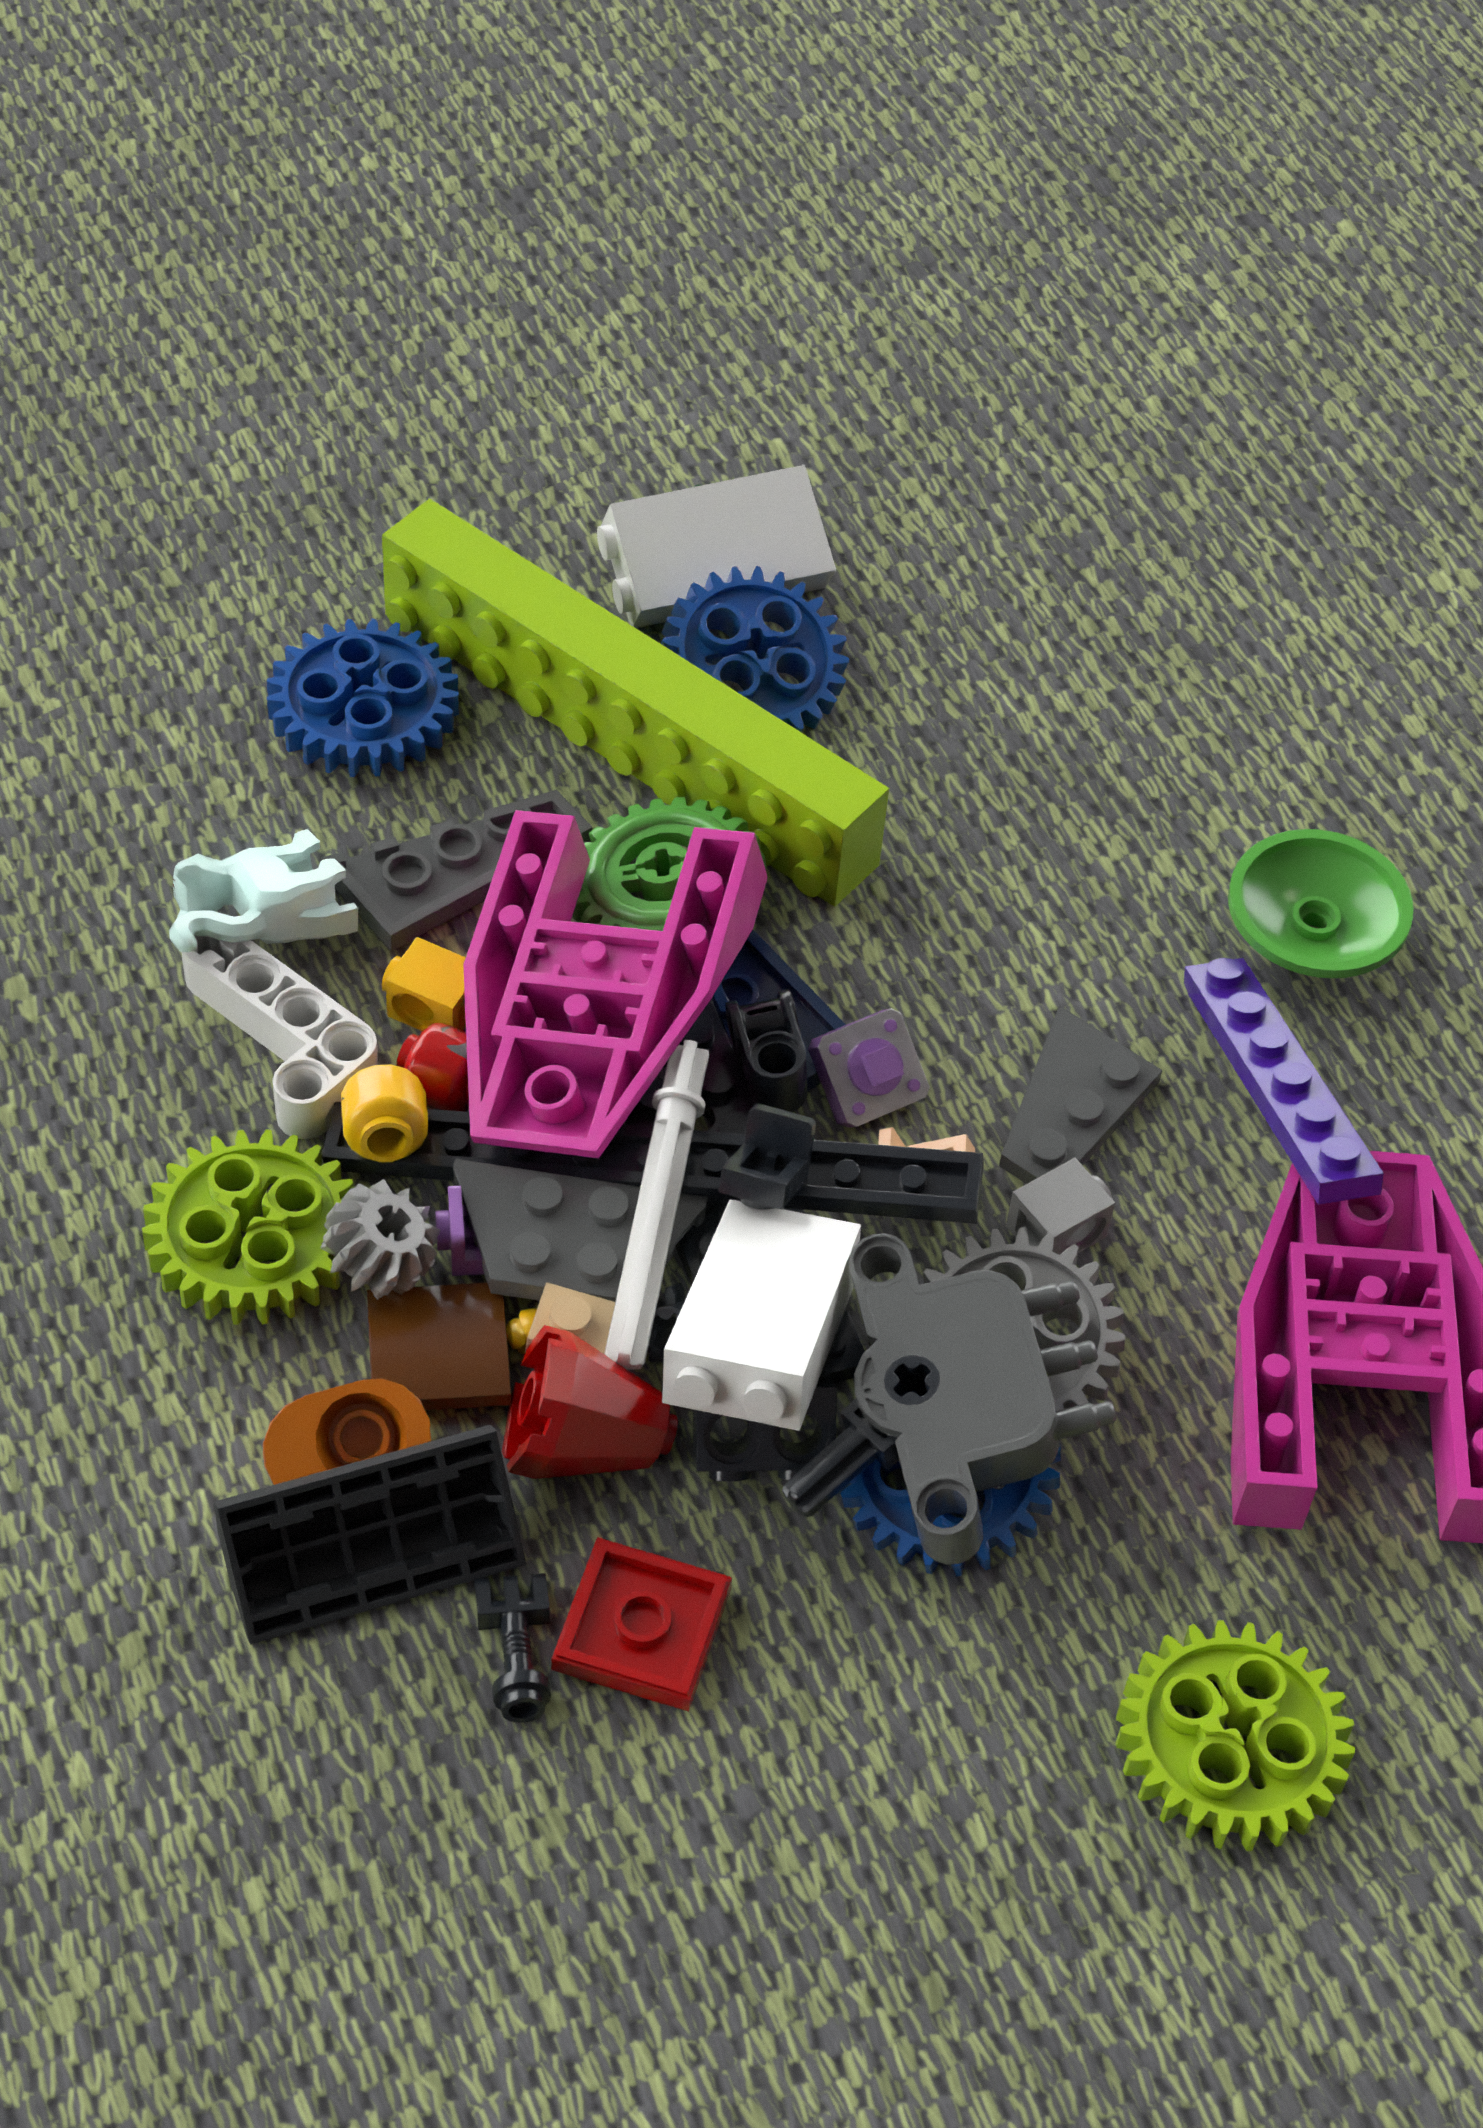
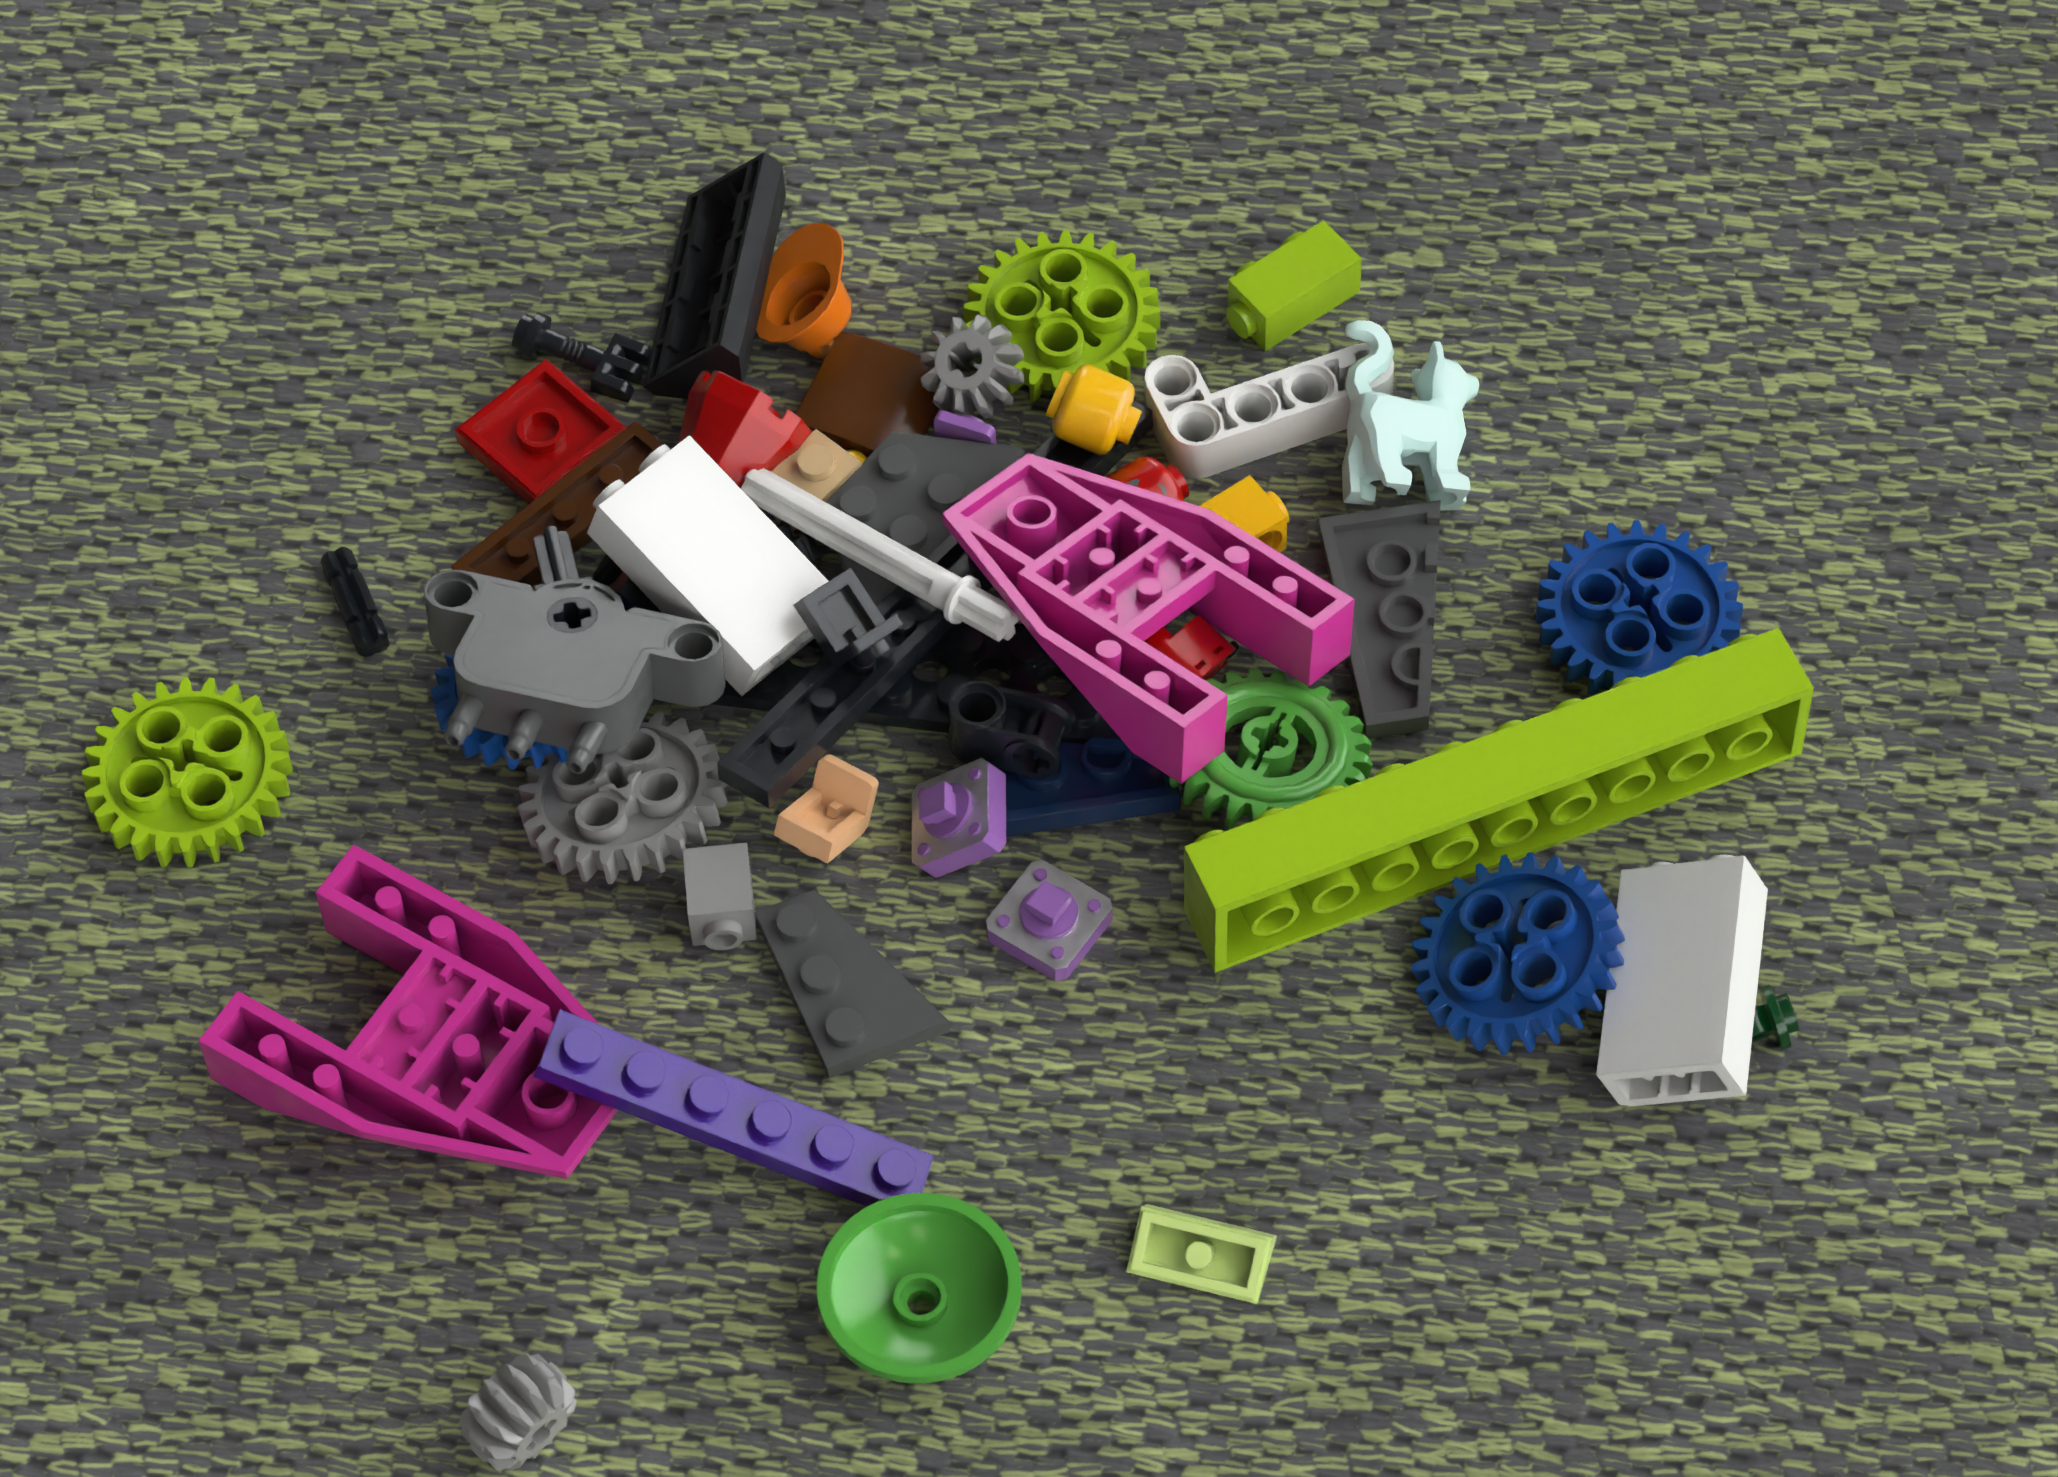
camera: 125 degrees right, 5 degrees up
(121, 1054) = (1292, 285): none -> lime brick
(756, 1552) = (567, 505): none -> reddish brown plate
(914, 980) = (1049, 920): none -> piece
(939, 1700) = (355, 601): none -> black axle
(1129, 777) = (1200, 1253): none -> yellowish green slope

